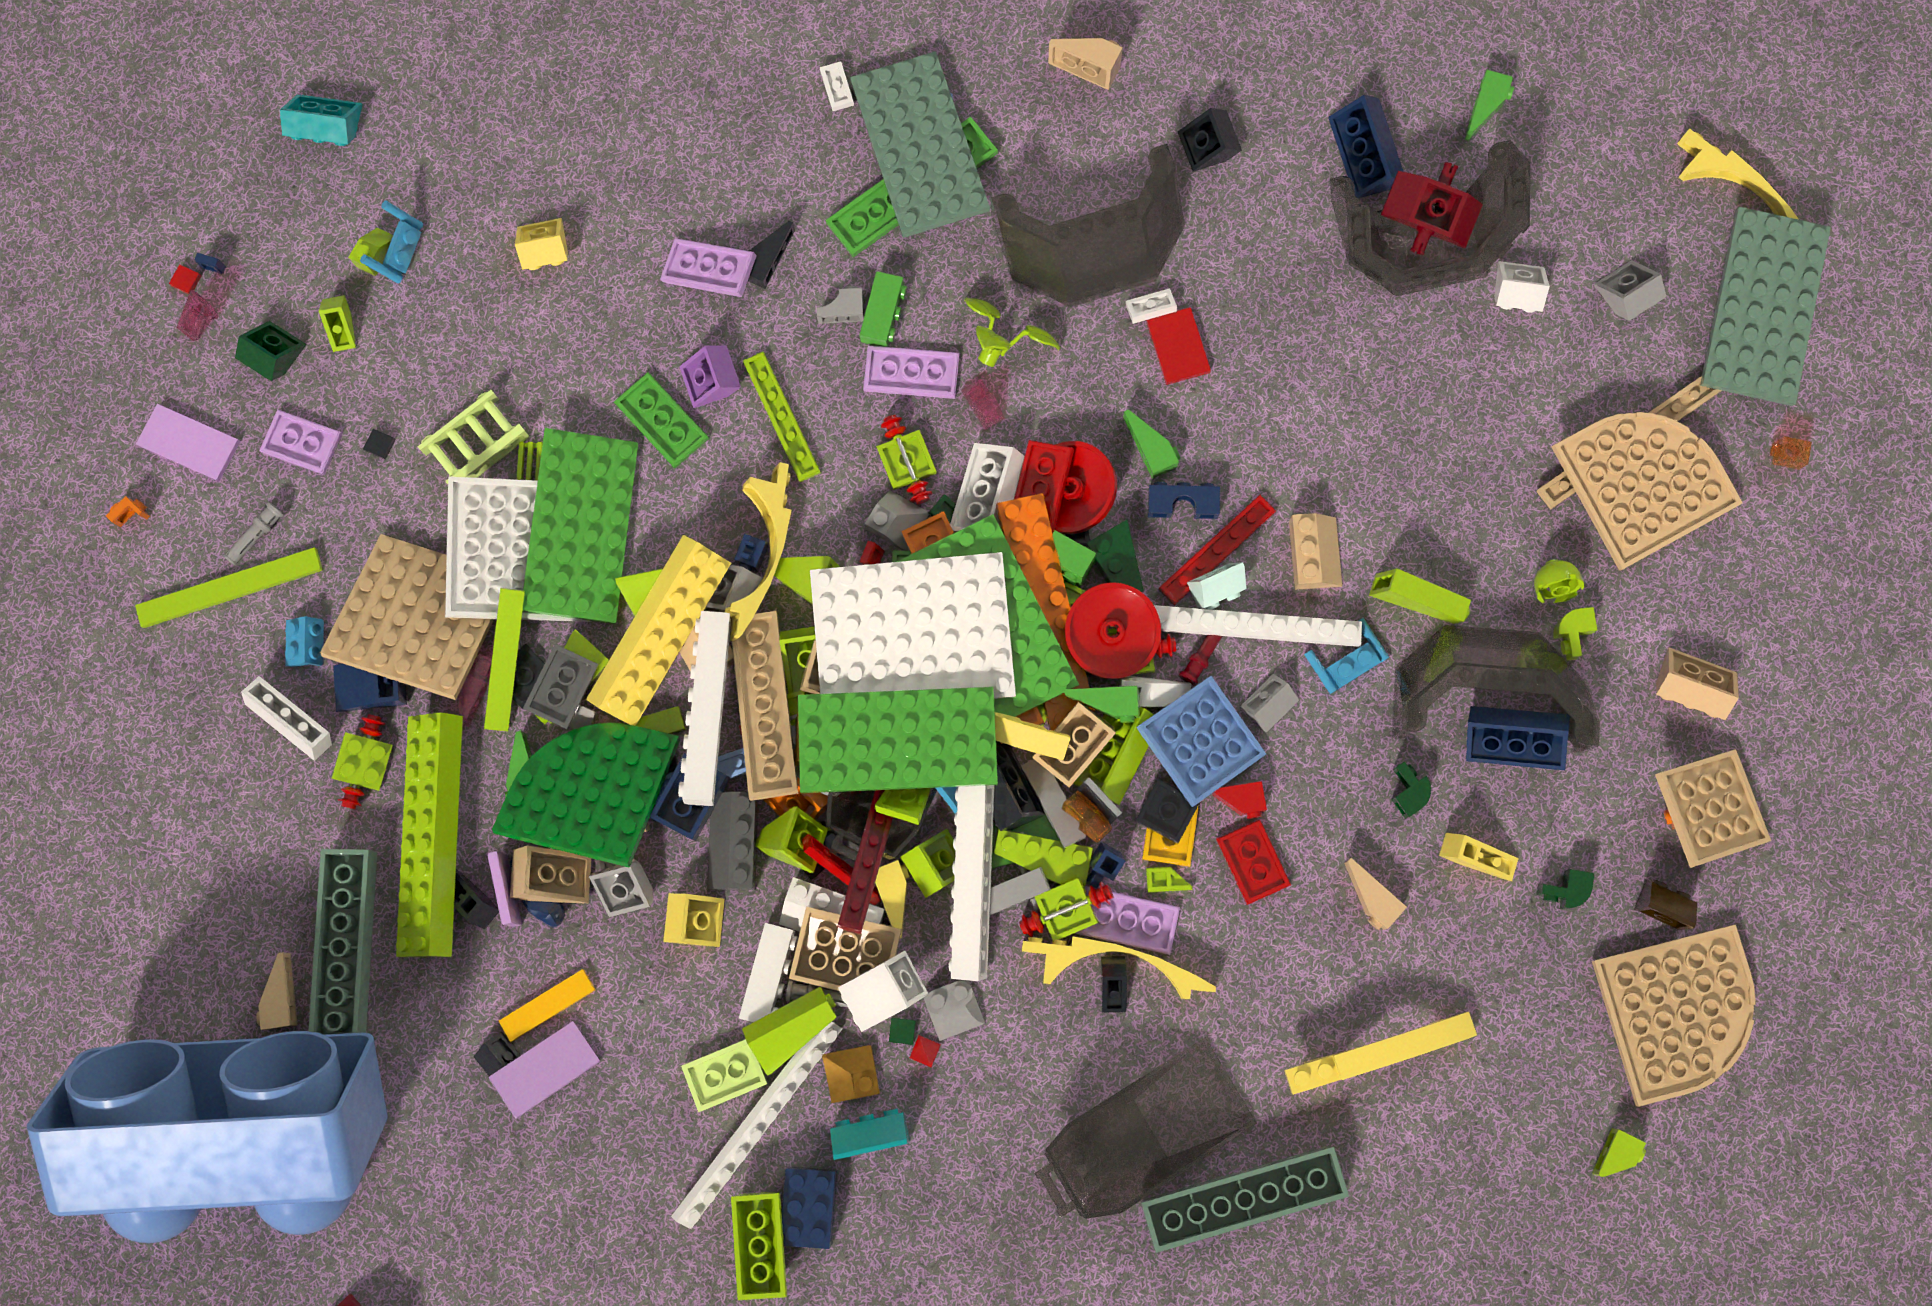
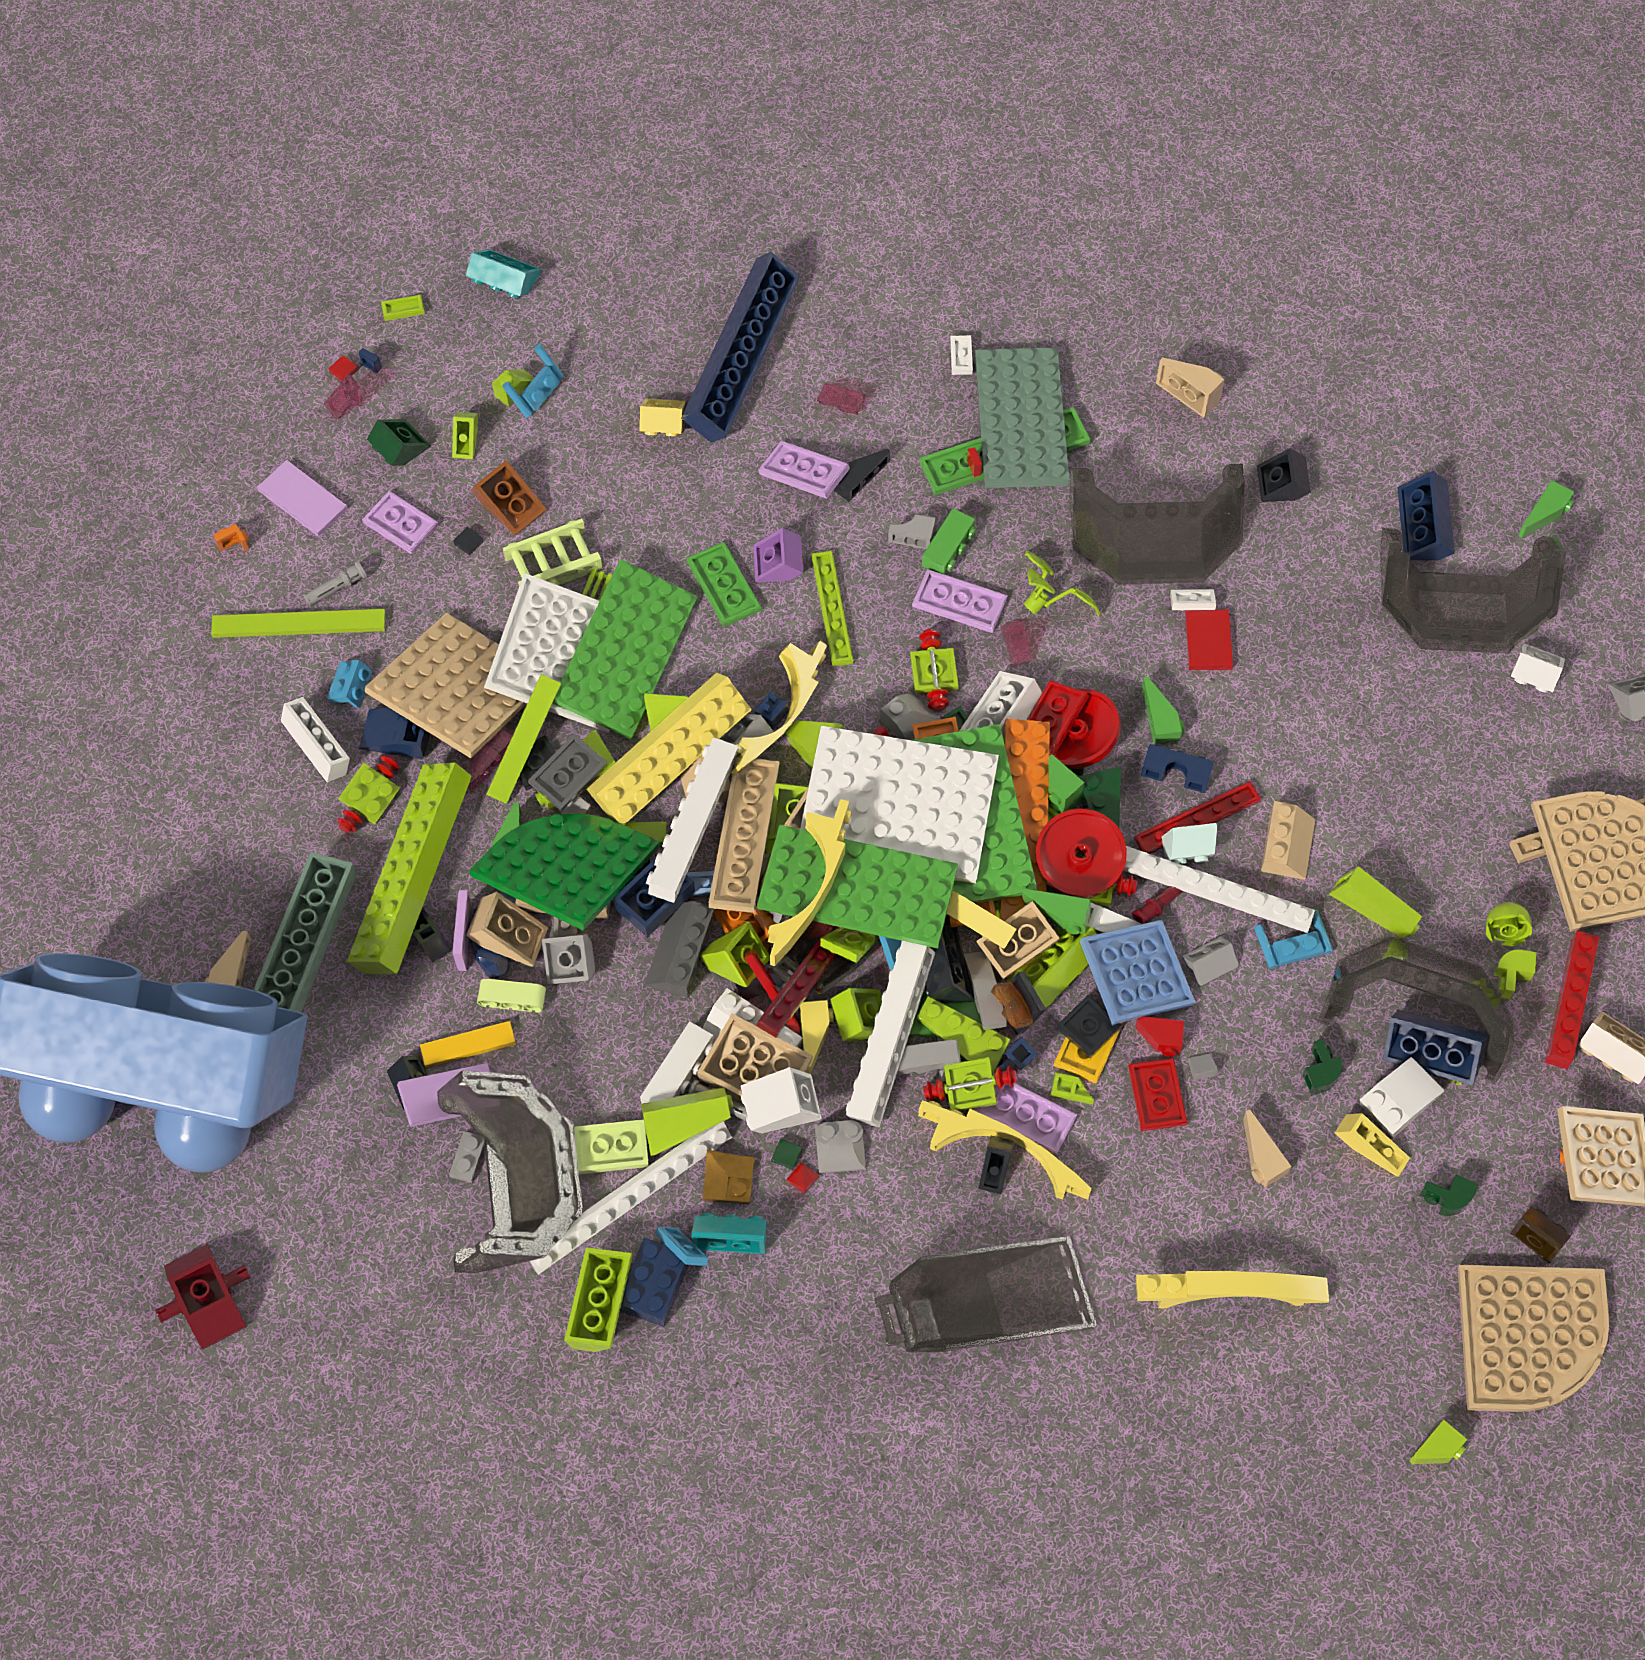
camera: 10 degrees right, 15 degrees down
(226, 189) = (402, 307): none -> lime tile
(407, 385) = (508, 498): none -> dark orange slope
(575, 941) = (511, 994): none -> yellowish green beam
(583, 1125) = (467, 1157): none -> light grey plate
(601, 143) = (740, 347): none -> dark blue brick
(651, 1133) = (528, 1167): none -> clear smoke windscreen
(694, 920) = (624, 1004): light yellow slope -> none
(724, 171) = (842, 398): none -> clear pink slope
(827, 1169) = (681, 1246): none -> dark azure tile
(853, 697) = (830, 838): none -> light yellow slope
(884, 211) = (974, 462): none -> red tile
(1244, 1198) = (1066, 1385): sand green brick -> none
(1290, 819) = (1202, 1066): none -> light grey slope
(1412, 202) = (1492, 585): dark red slope -> none
(1496, 800) = (1401, 1097): none -> white slope
(1639, 646) = (1571, 1000): none -> red brick

